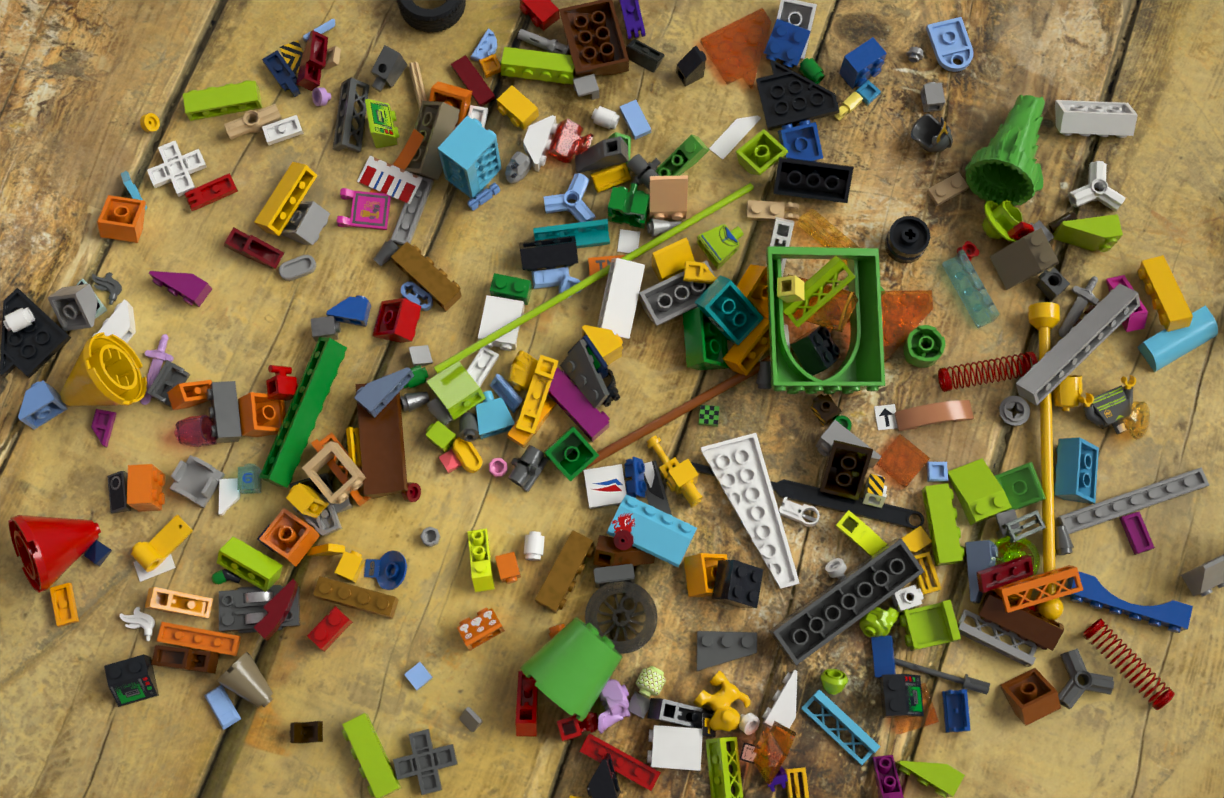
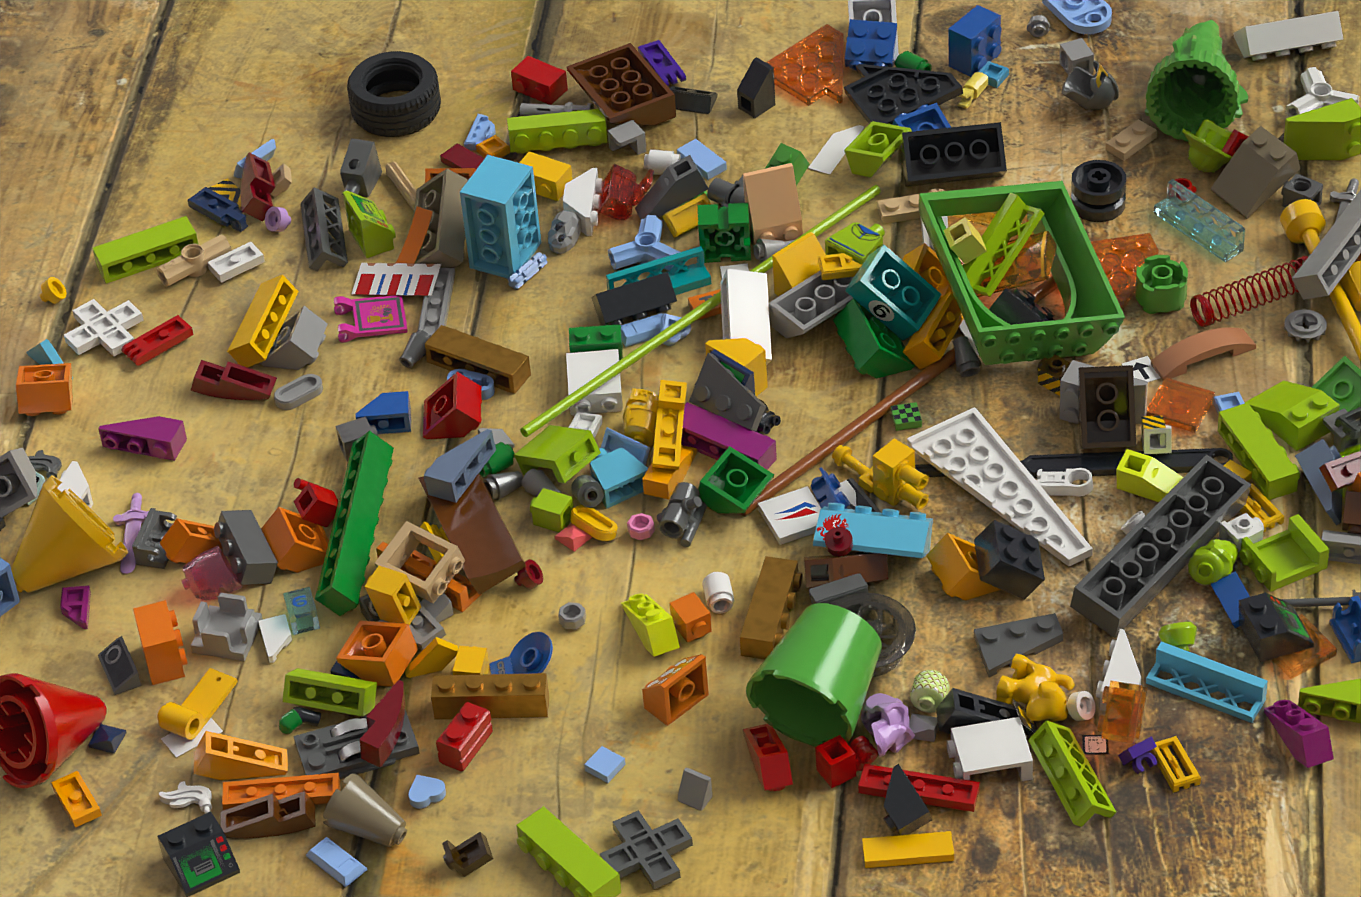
camera: 10 degrees left, 30 degrees down
(294, 663) = (426, 790): none -> light blue tile

